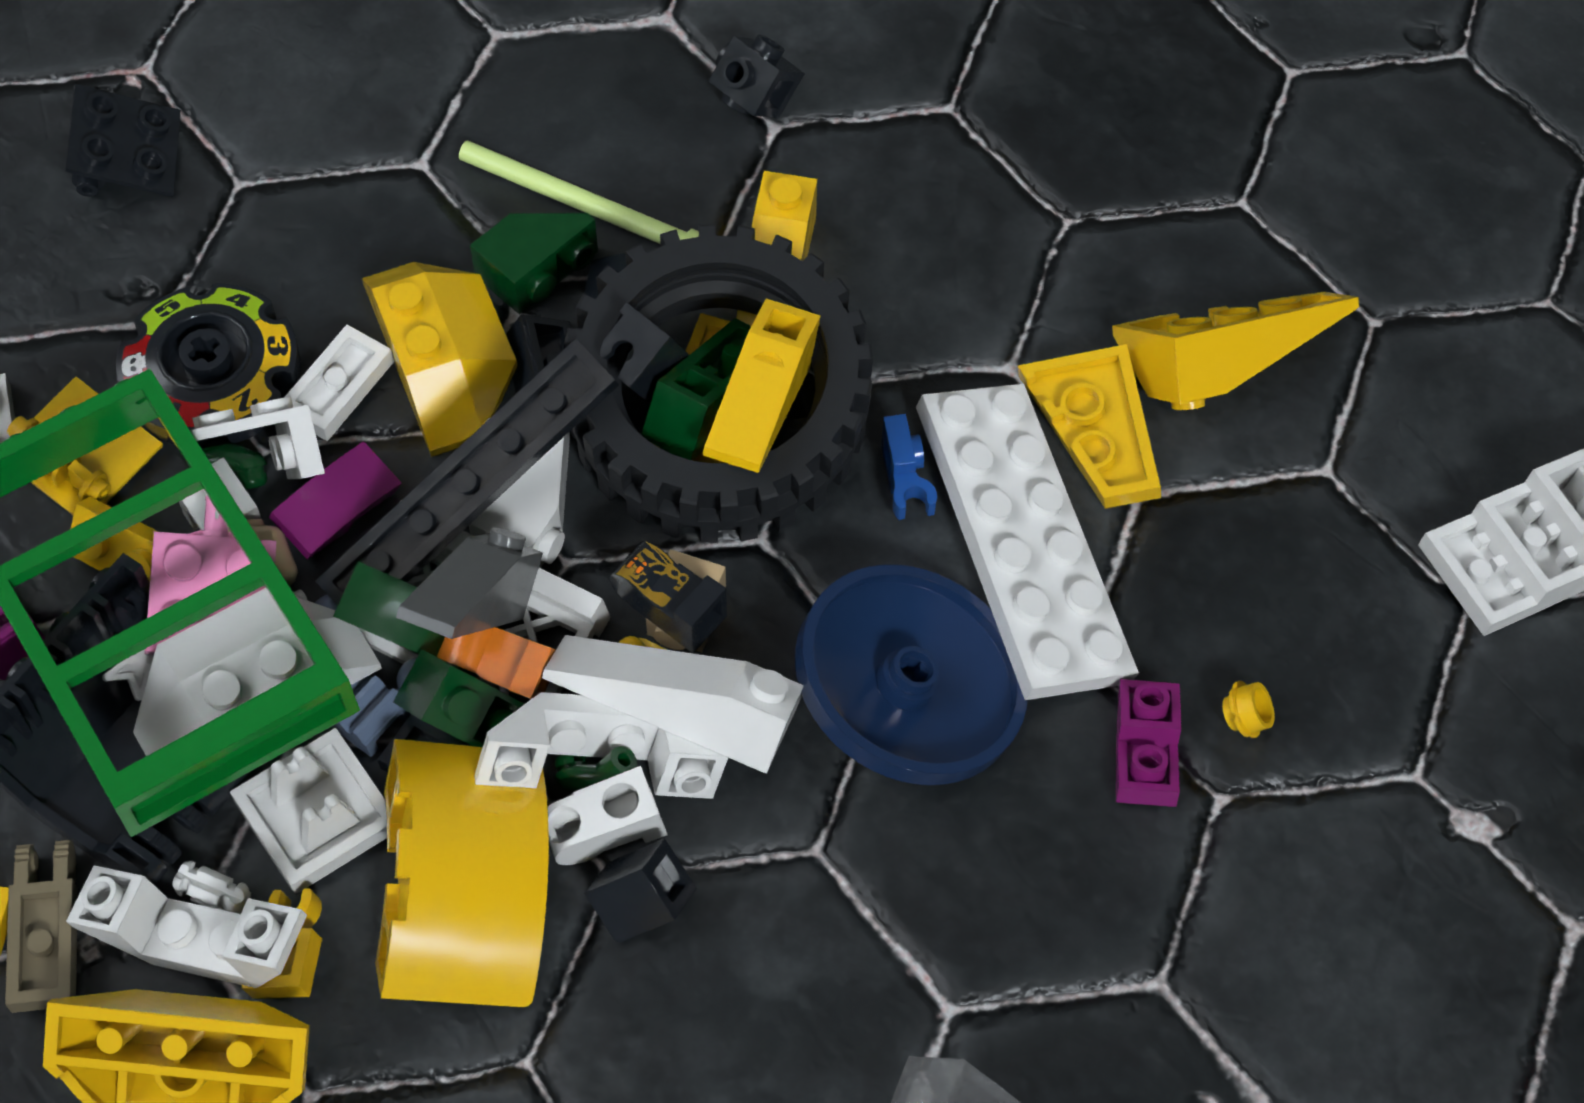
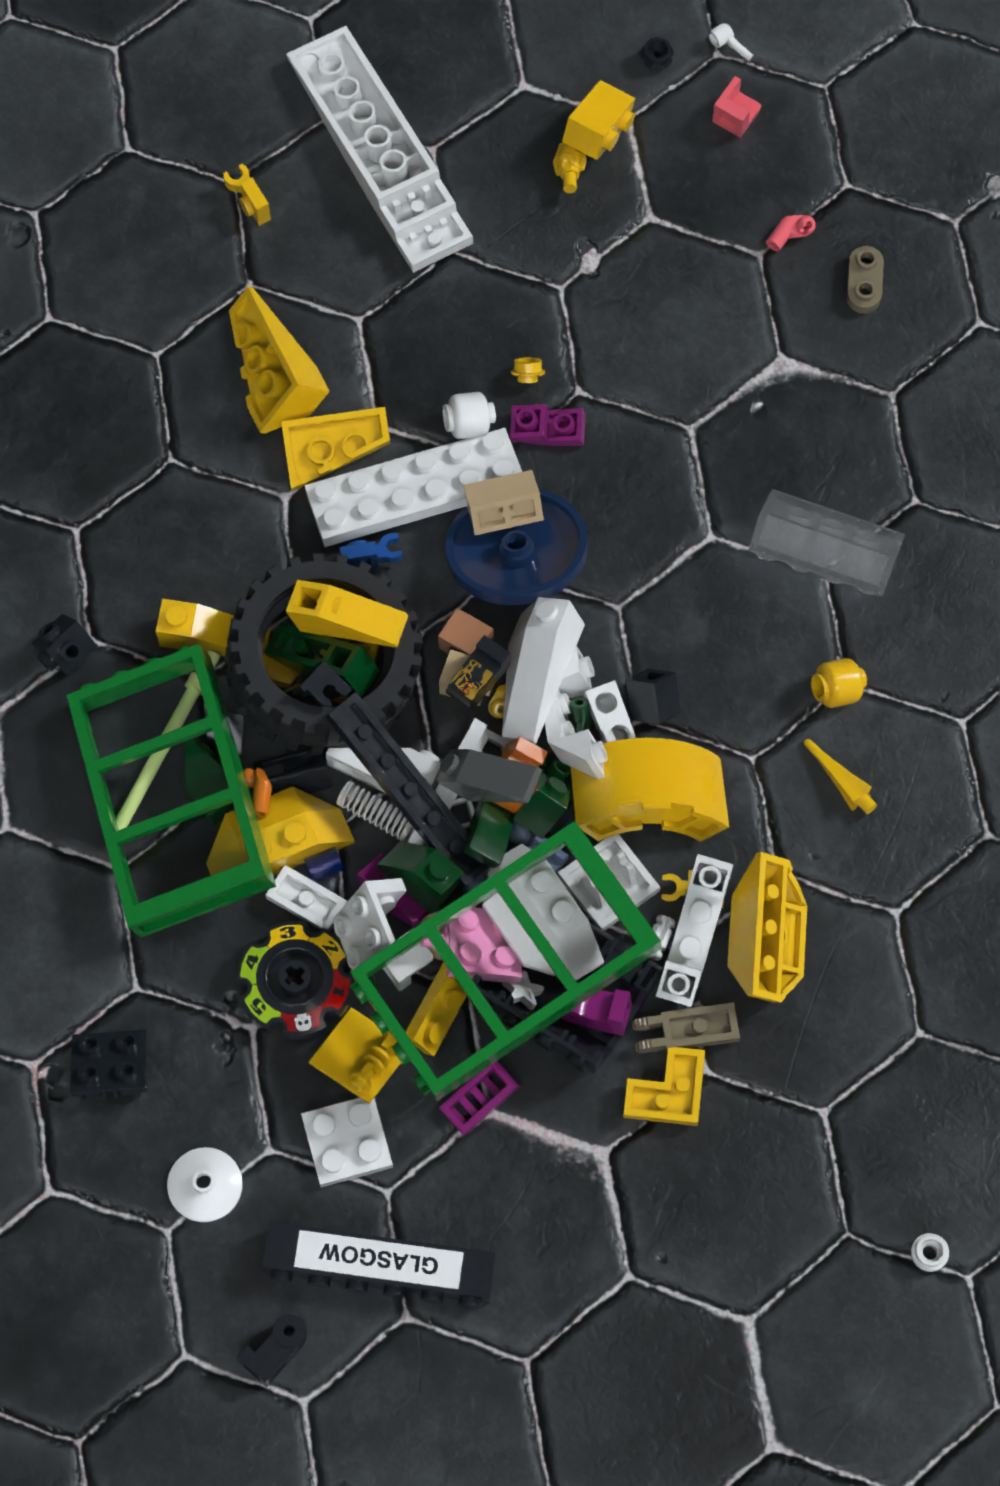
camera: 90 degrees left, 10 degrees up
(76, 784) = (603, 1012): none -> magenta leg
(341, 514) = (424, 871): none -> dark green slope
(391, 406) = (323, 864): none -> clear blue hinge
(509, 252) = (211, 891): none -> green window
(519, 304) = (262, 790): none -> orange arm
(760, 598) = (463, 633): none -> nougat panel
(986, 647) = (503, 502): none -> tan hinge
(1154, 612) = (468, 415): none -> white head
(1520, 313) = (252, 199): none -> yellow plate

